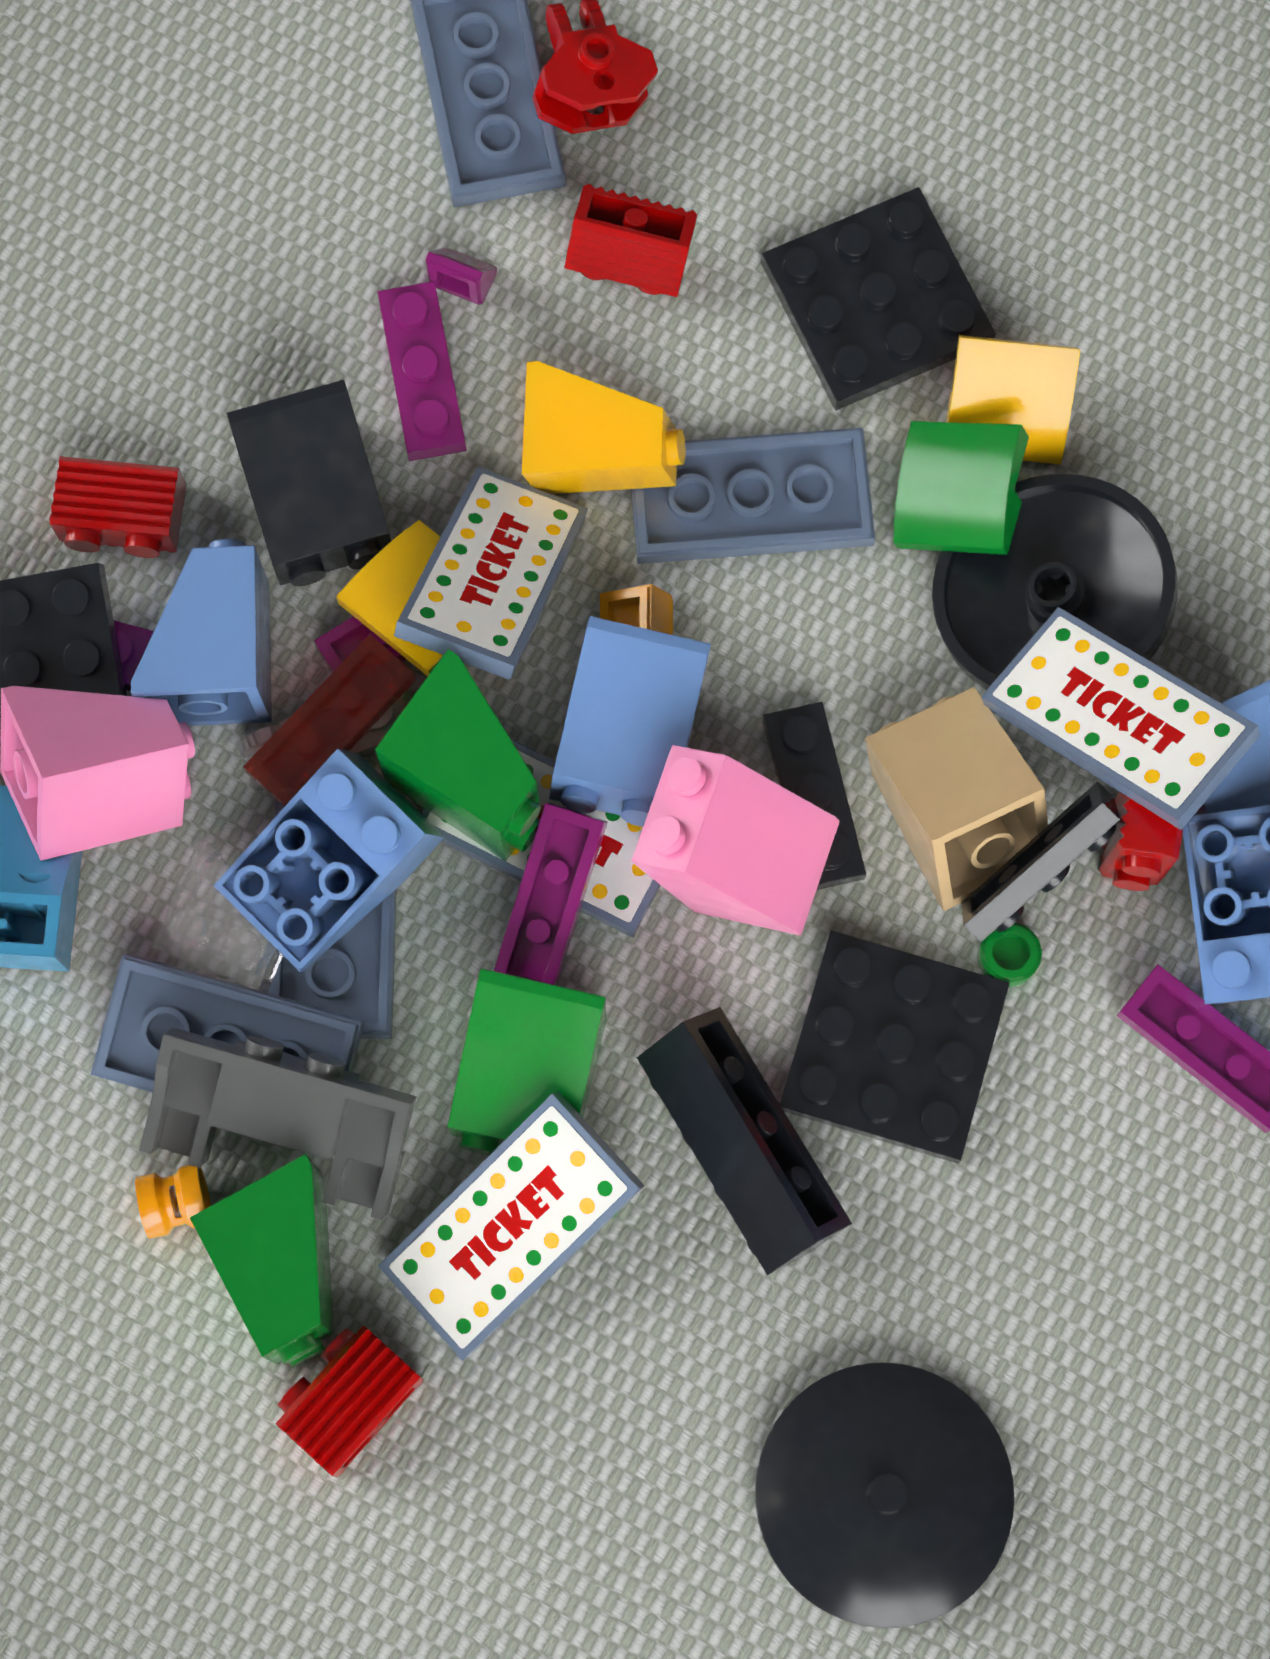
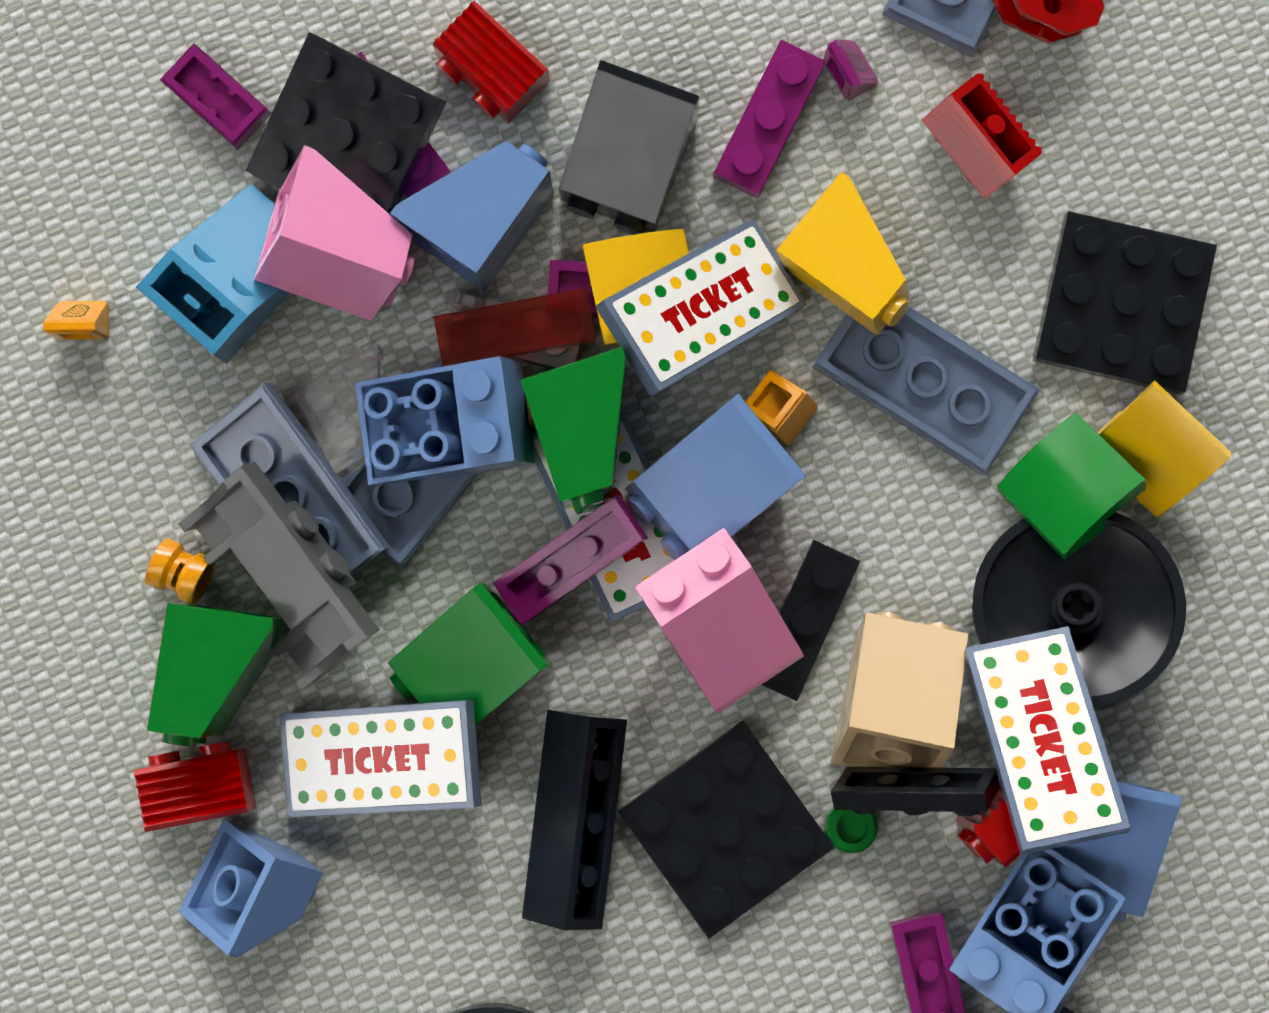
camera: 40 degrees right, 10 degrees up
(476, 1458) = (248, 889): none -> medium blue slope

